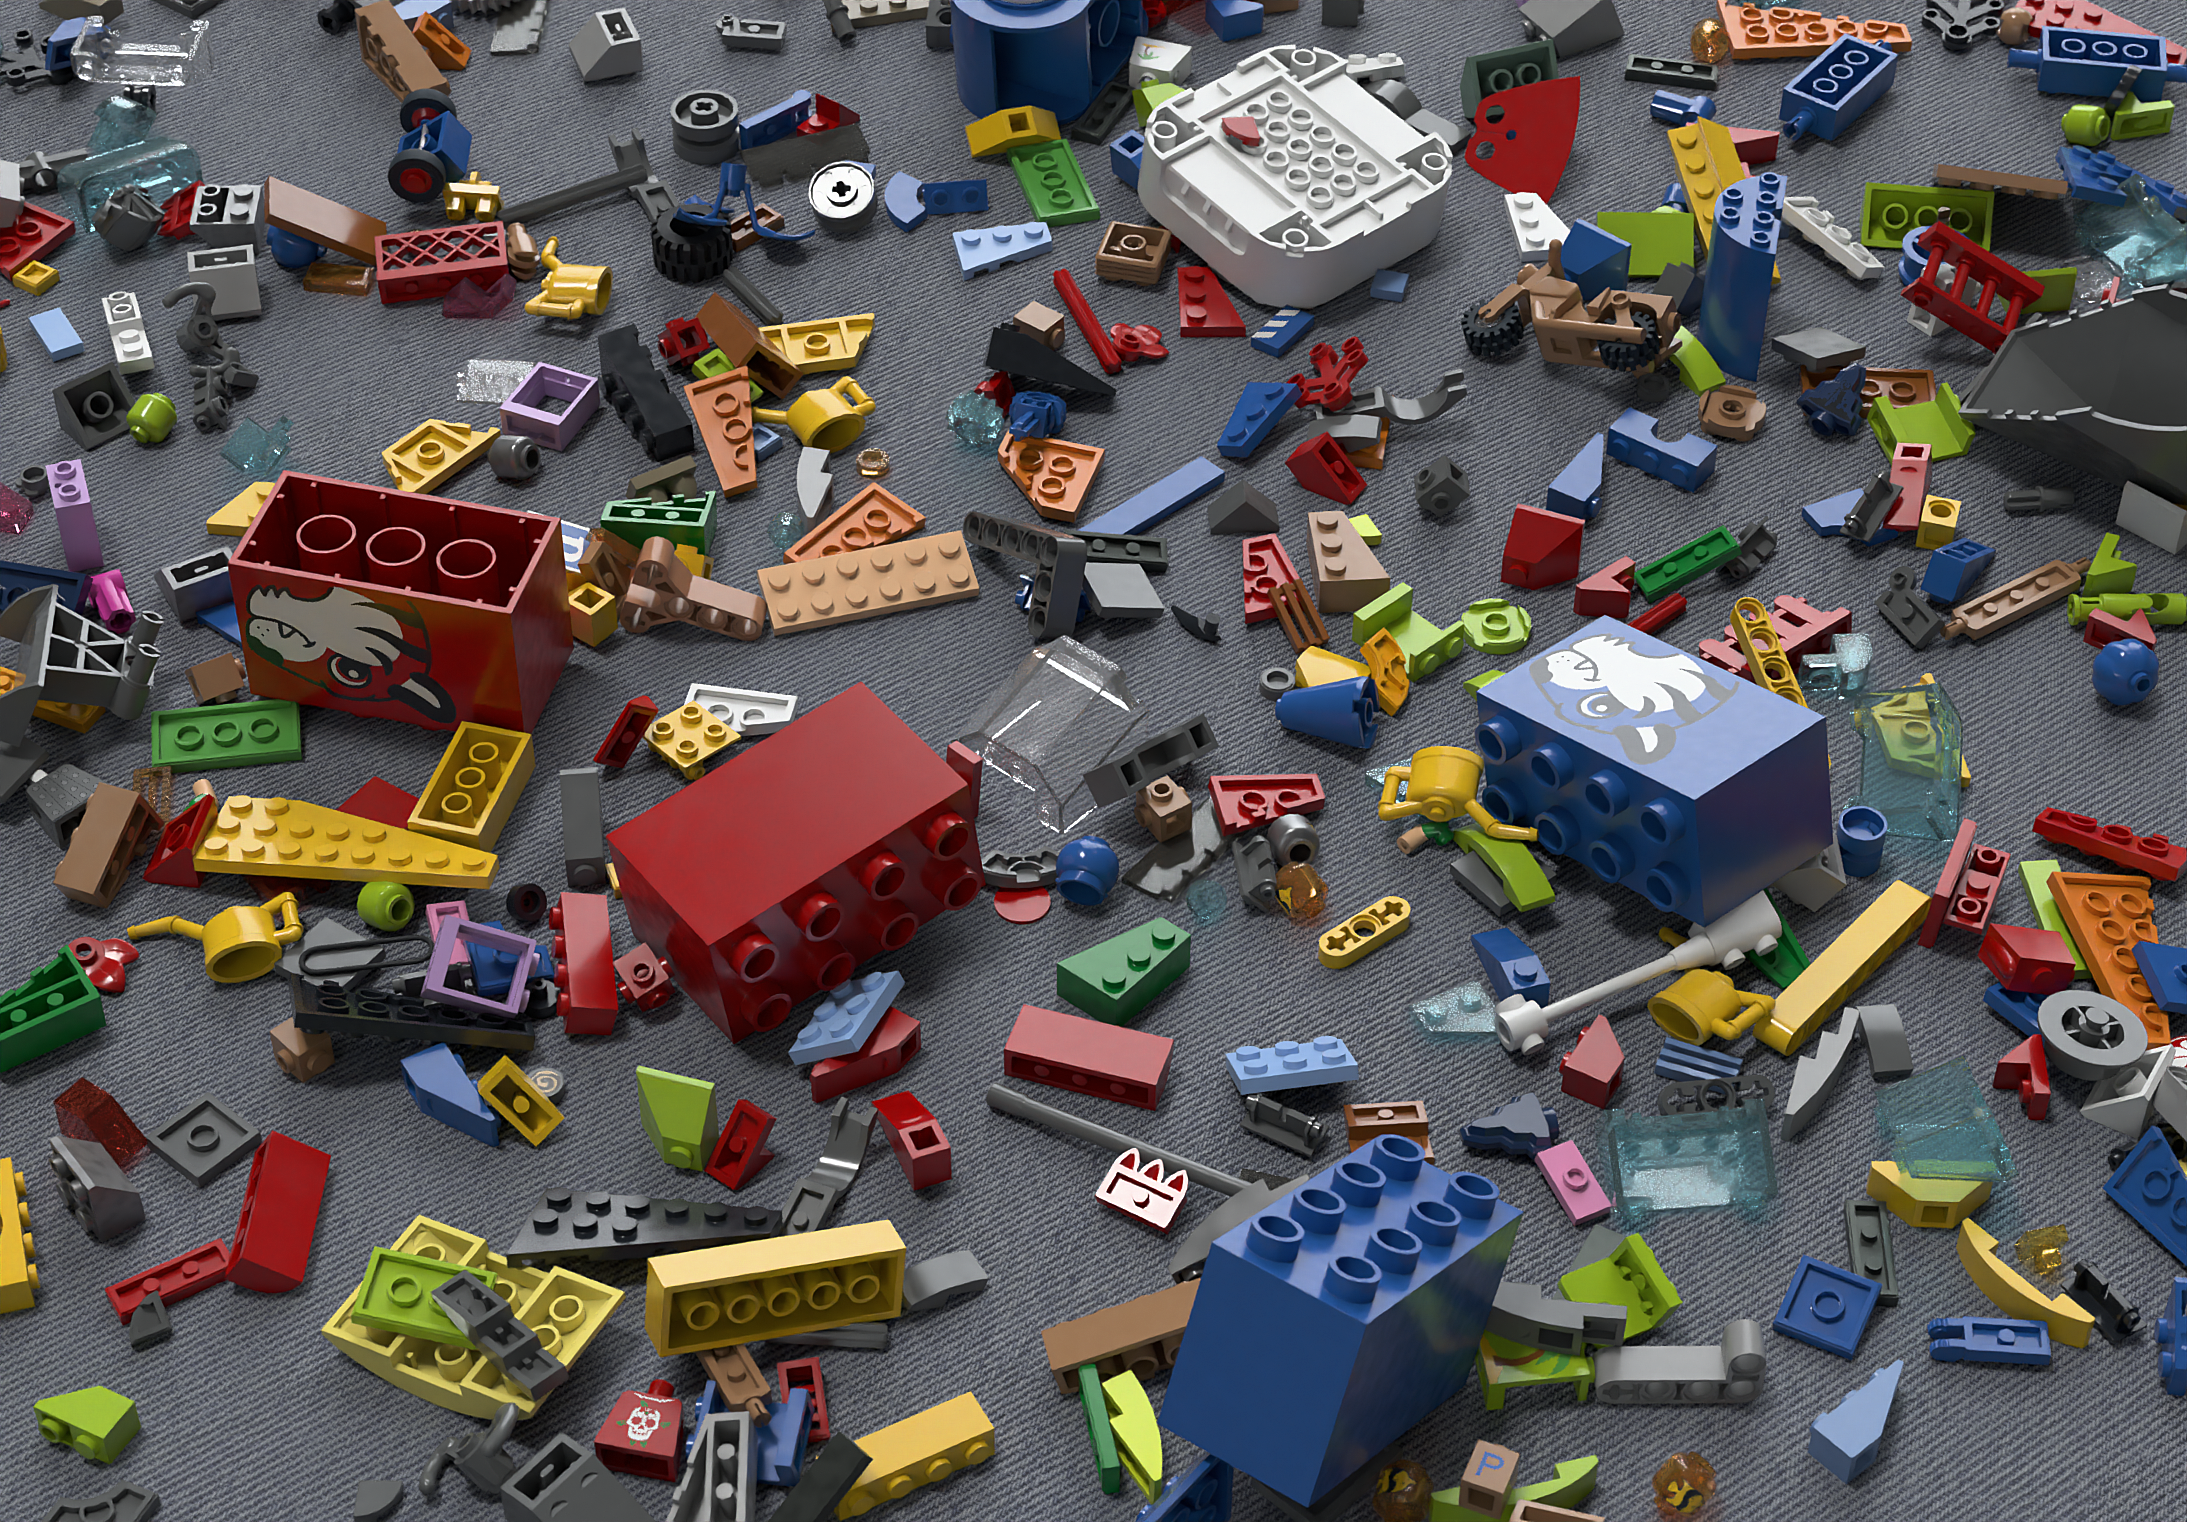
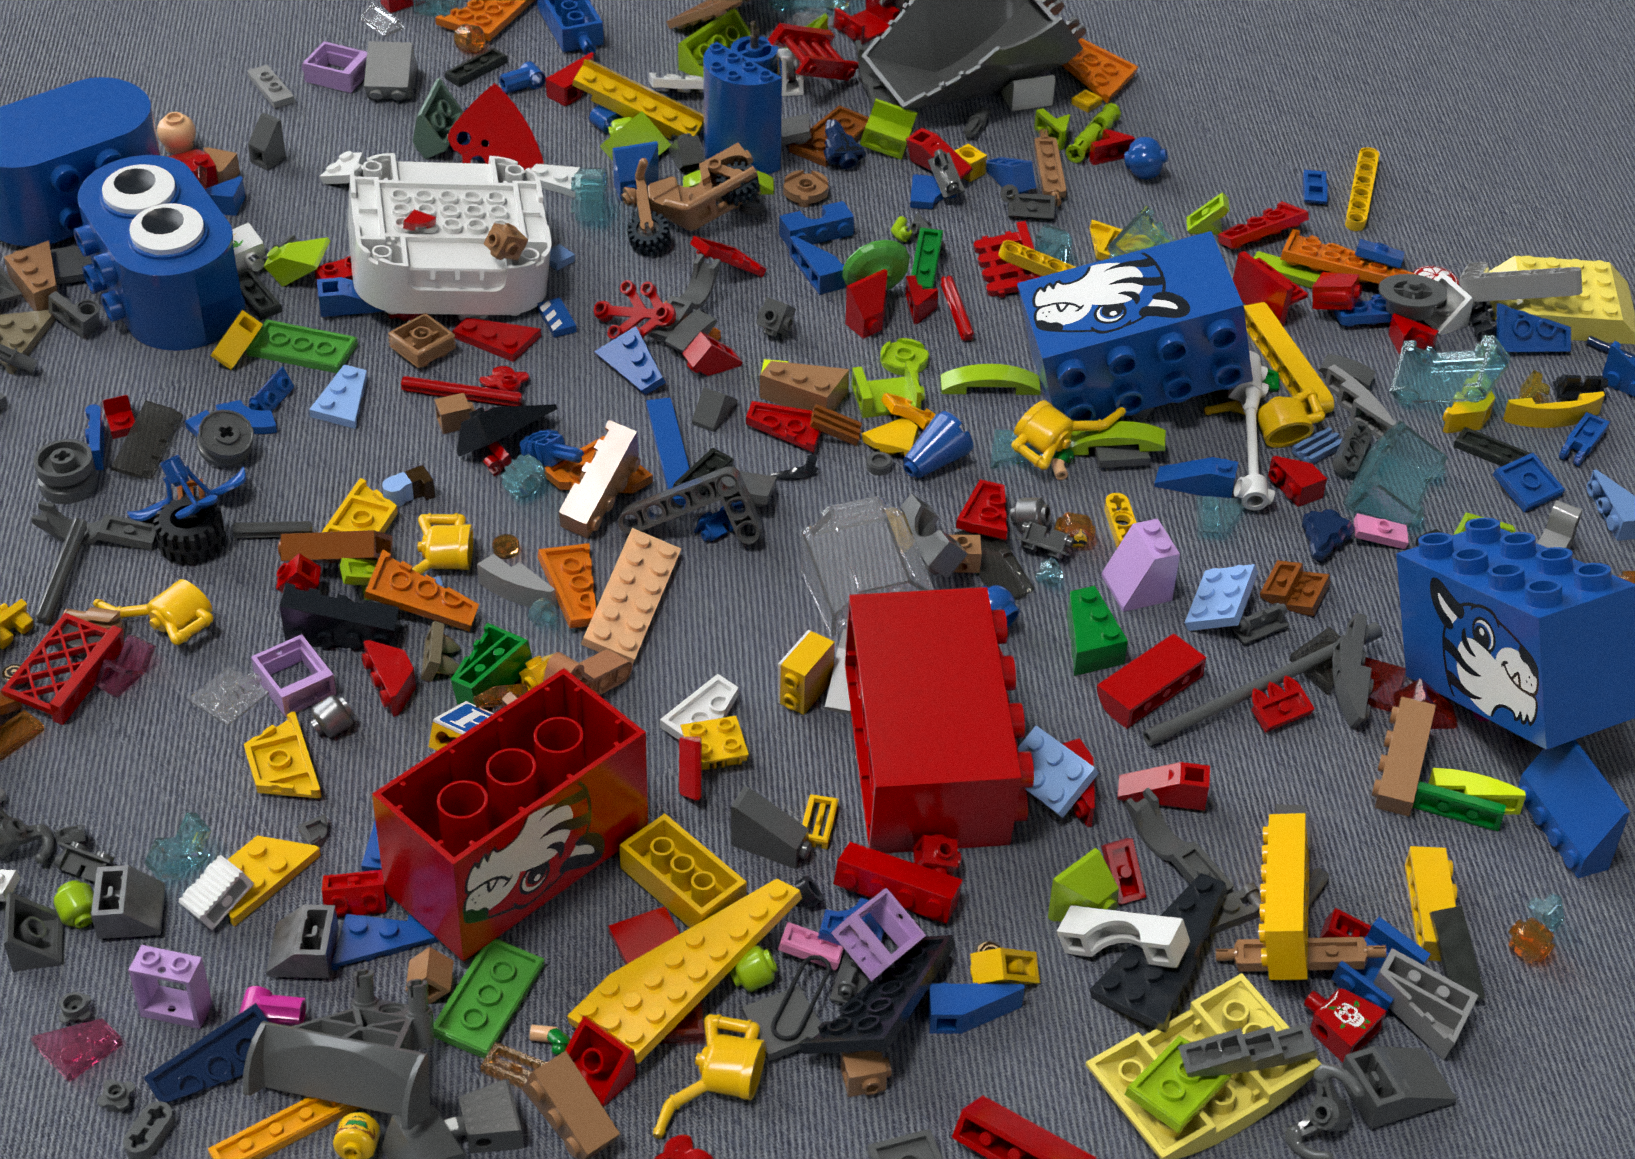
camera: 60 degrees left, 0 degrees up
(170, 444) = (126, 903): none -> flat silver slope
(218, 491) = (215, 892): none -> white brick
(601, 472) = (390, 673): none -> red slope
(624, 1175) = (1092, 929): none -> white arch
(895, 352) = (409, 486): none -> leg
(1008, 471) = (601, 480): none -> wedge
(1269, 202) = (505, 241): none -> medium nougat brick
(1273, 972) = (1143, 567): none -> lavender slope
(1505, 244) = (590, 191): none -> clear light blue brick
(1509, 398) = (727, 254): none -> red wing
(1610, 523) = (876, 257): none -> bright green hat
(1738, 521) = (899, 229): none -> lime arm
(2073, 786) = (1208, 216): none -> lime slope

